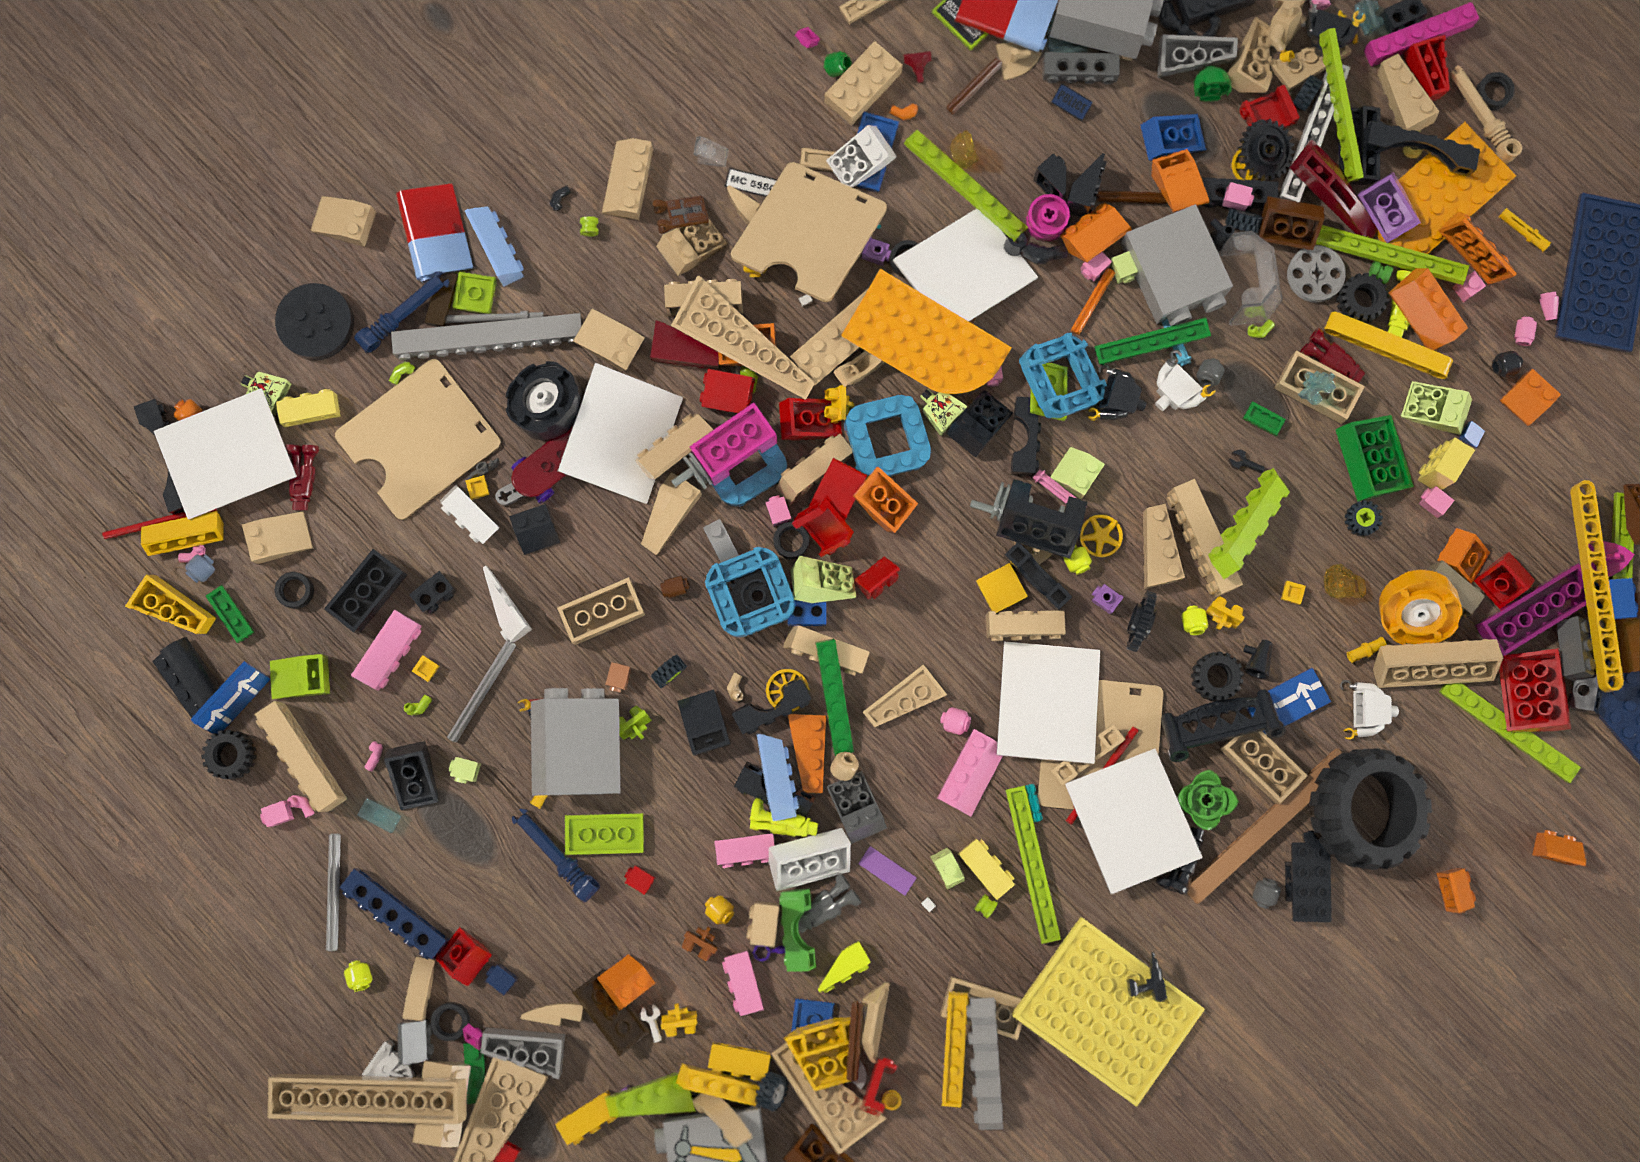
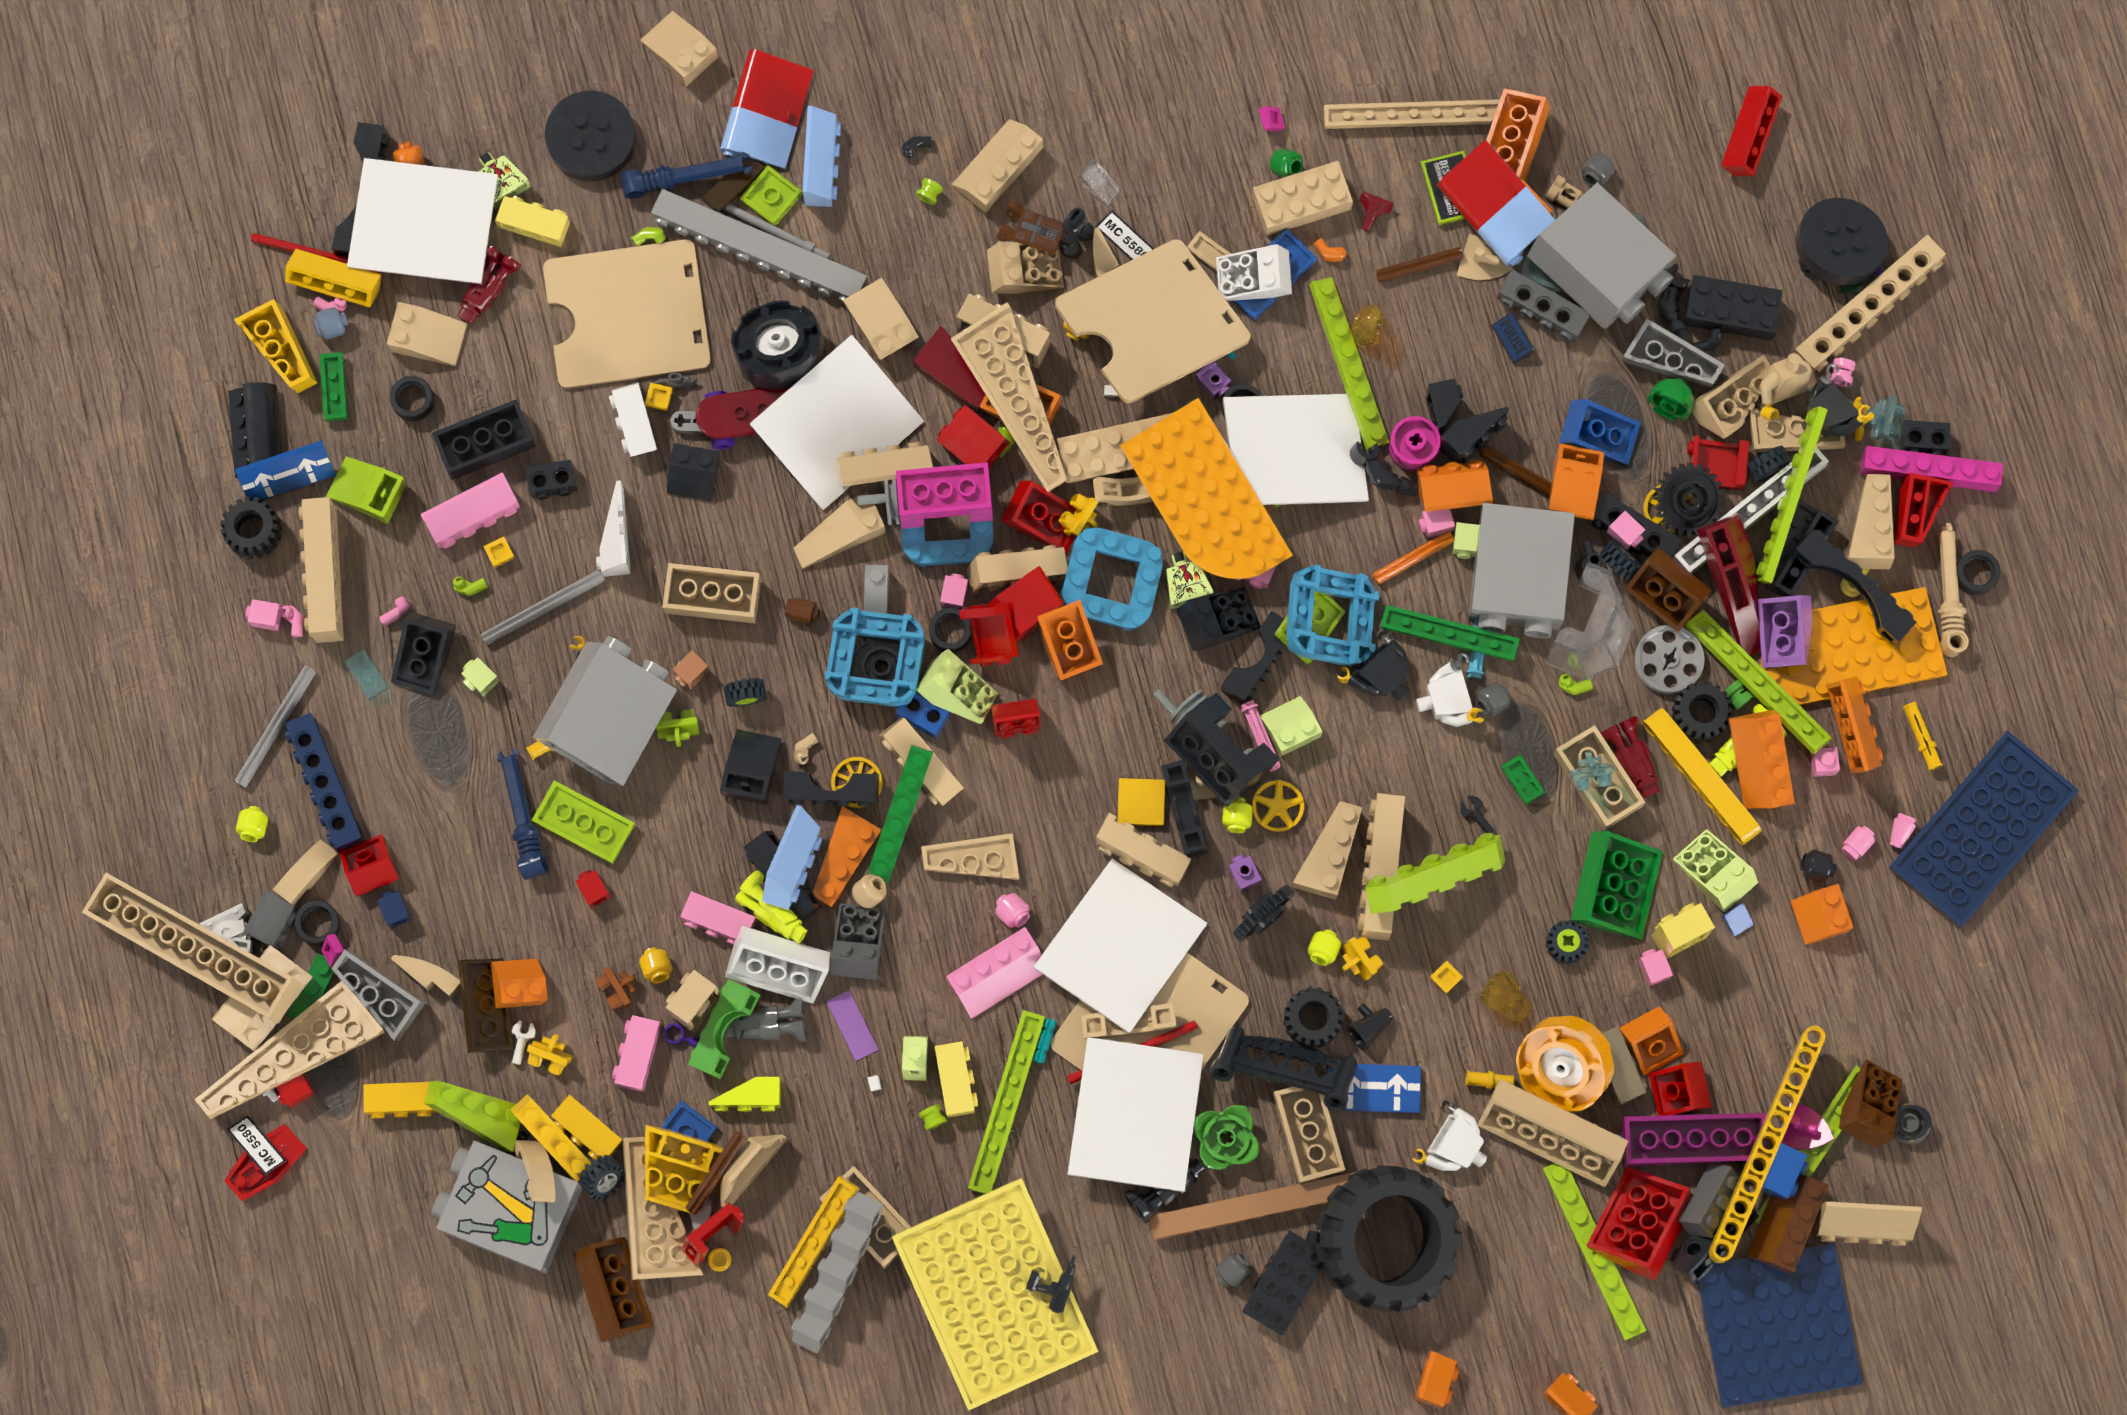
camera: 30 degrees right, 5 degrees down
(713, 195) = (1075, 228): none -> black piece

